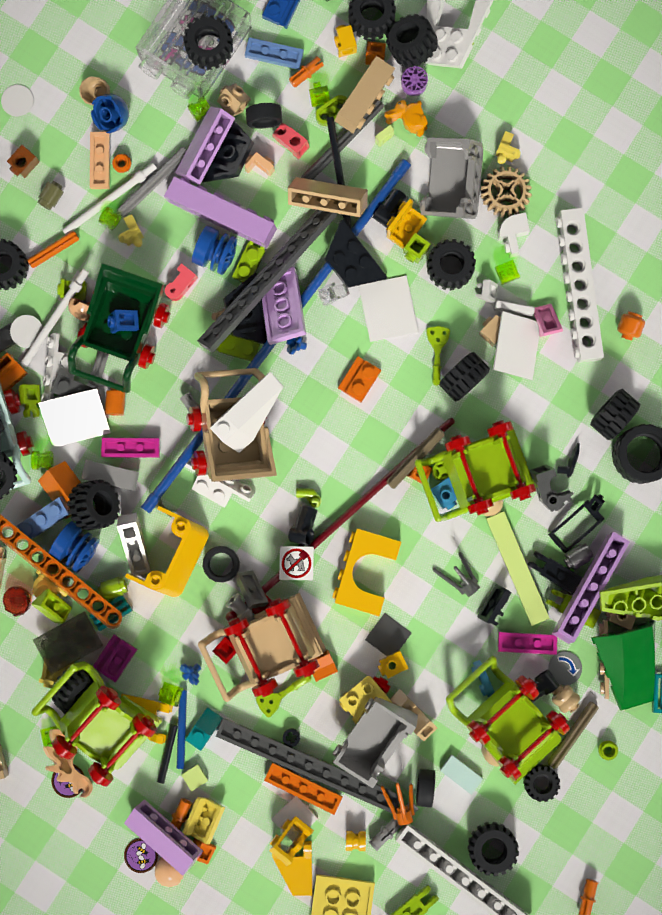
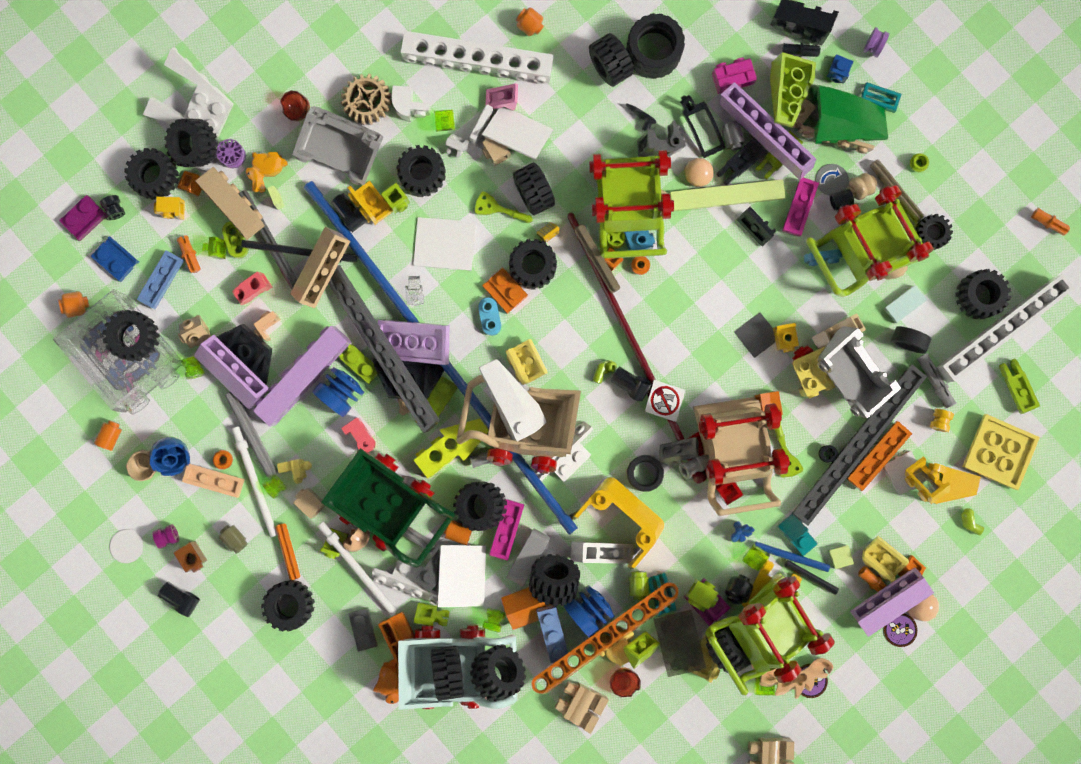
camera: 80 degrees left, 0 degrees up
(25, 330) = (360, 601): white sticker -> none
(36, 134) = (165, 536): none -> magenta wheel
(103, 253) = (308, 502): none -> tan brick
(114, 51) = (108, 435): none -> orange brick
(119, 651) = (702, 595): none -> lime brick
(123, 320) = (383, 499): blue bracket -> none
(135, 405) = (466, 511): none -> black tyre
(135, 686) = (739, 589): none -> black head
(168, 357) = (463, 450): none -> neon yellow brick
(263, 895) = (969, 522): none -> lime arm
(264, 115) = (219, 306): black tyre -> none
(295, 345) = (454, 341): blue plant -> none
(295, 419) = (526, 362): none -> light yellow bracket
(330, 372) = (489, 316): none -> medium azure plate
(351, 259) = (387, 263): black wing -> none
(363, 544) = (665, 333): yellow arch -> none
(394, 381) = (532, 248): none -> black tyre
(404, 814) = (929, 367): orange plant -> none
(417, 506) = (640, 271): none -> orange plate
(428, 404) = (548, 232): none -> yellow slope
(469, 586) = (730, 244): dark grey plant -> none
(478, 126) = (295, 105): none -> clear red hair
(505, 151) = (327, 87): light yellow piece -> none
(532, 533) = (698, 172): none -> light nougat hair
(641, 543) = (739, 71): none -> dark pink brick

